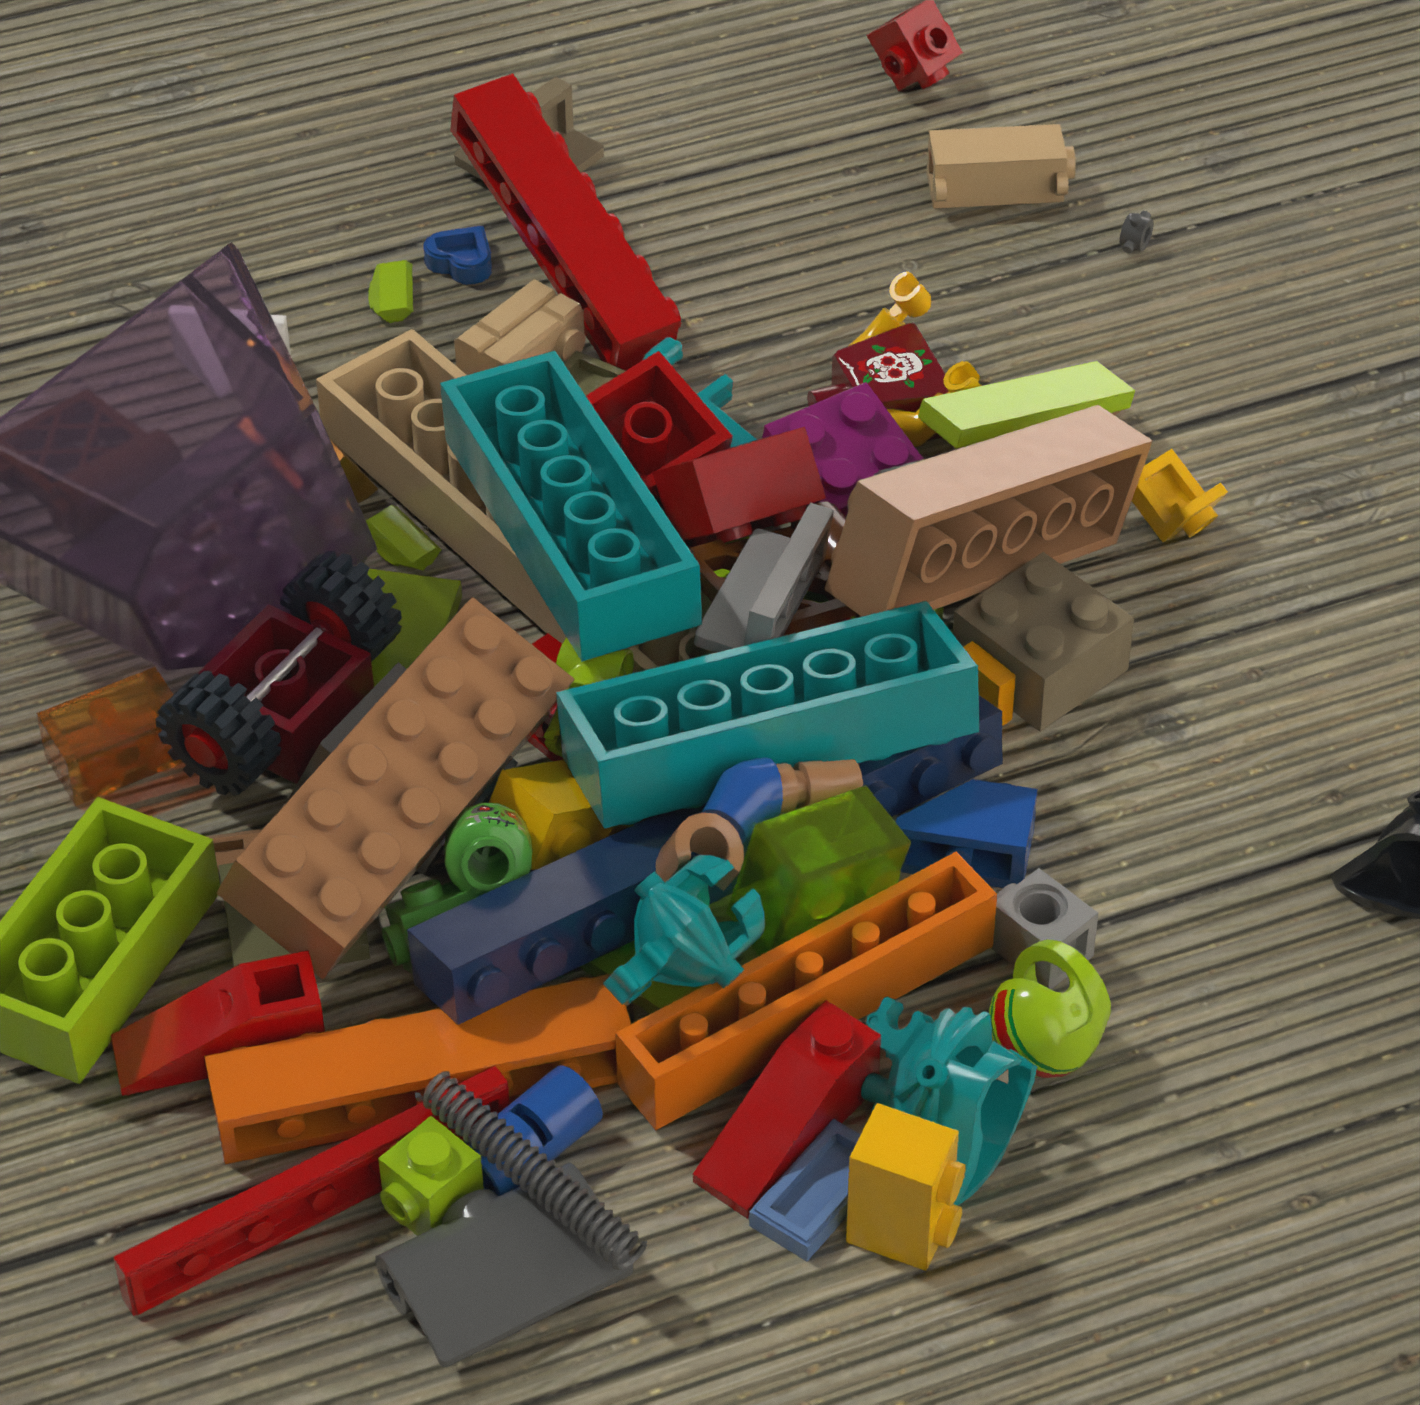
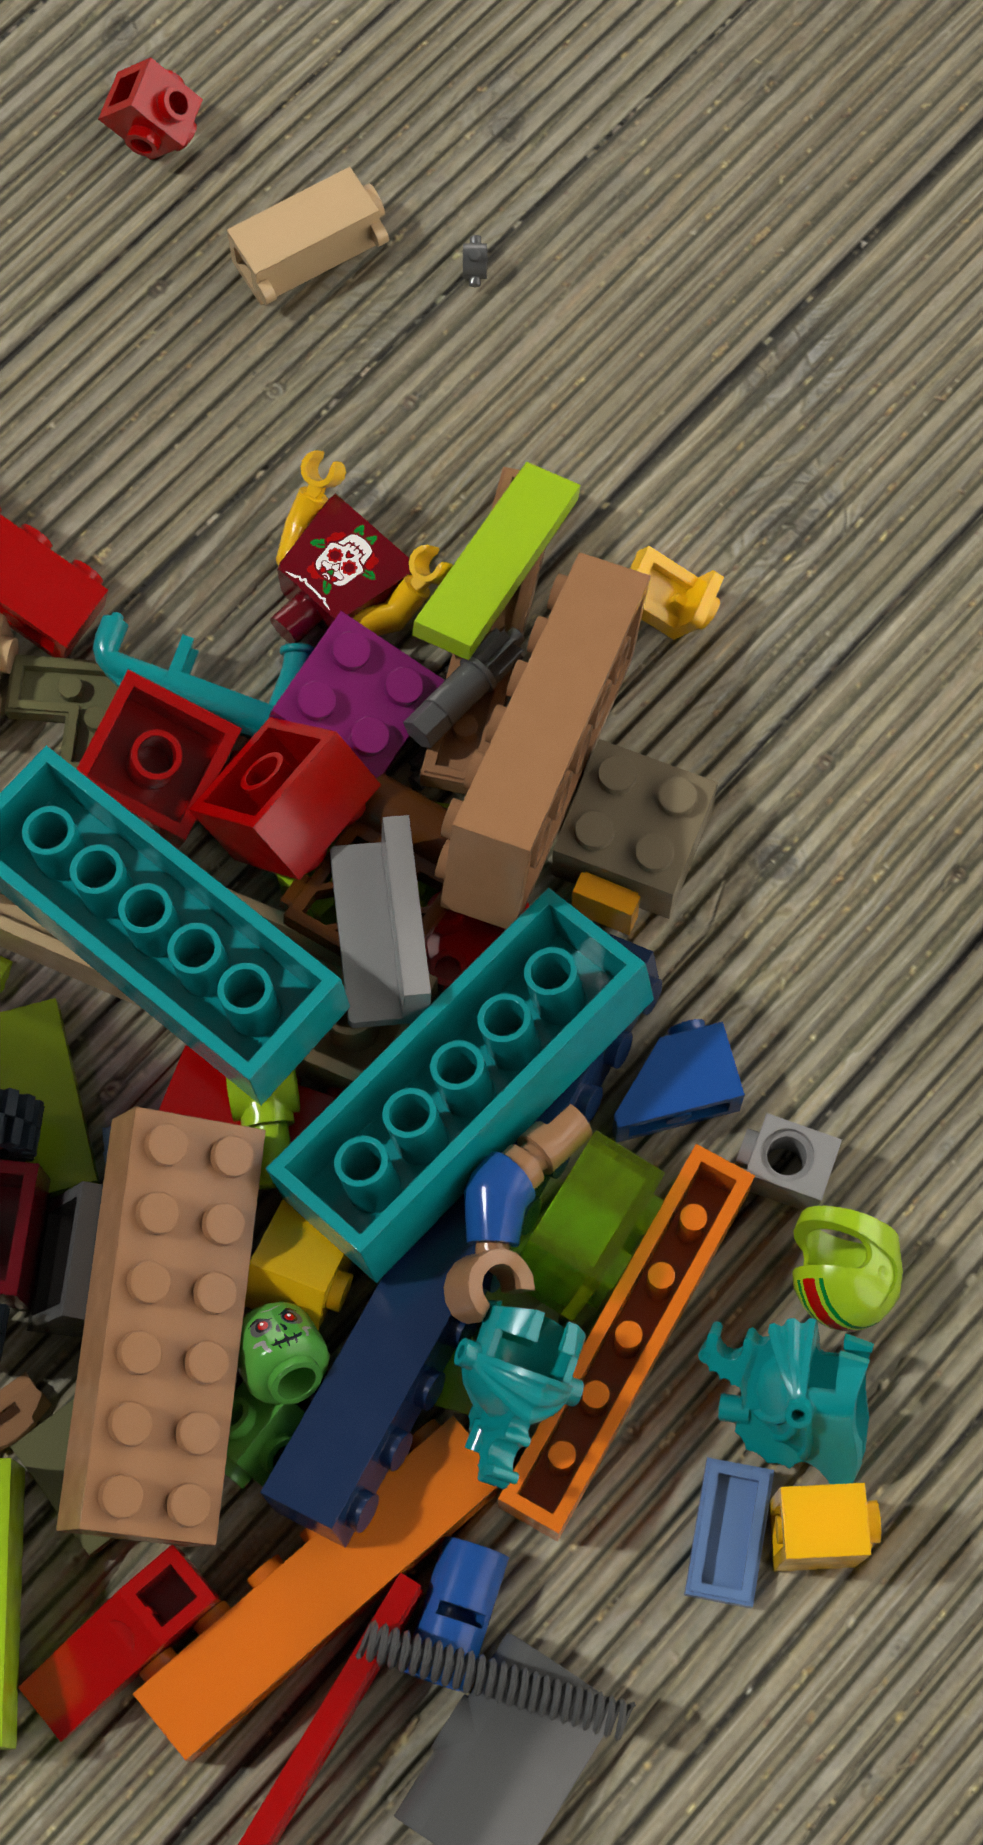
camera: 25 degrees left, 25 degrees up
(427, 1175) = (400, 1716): lime brick -> none
(798, 1093) = (669, 1475): red slope -> none

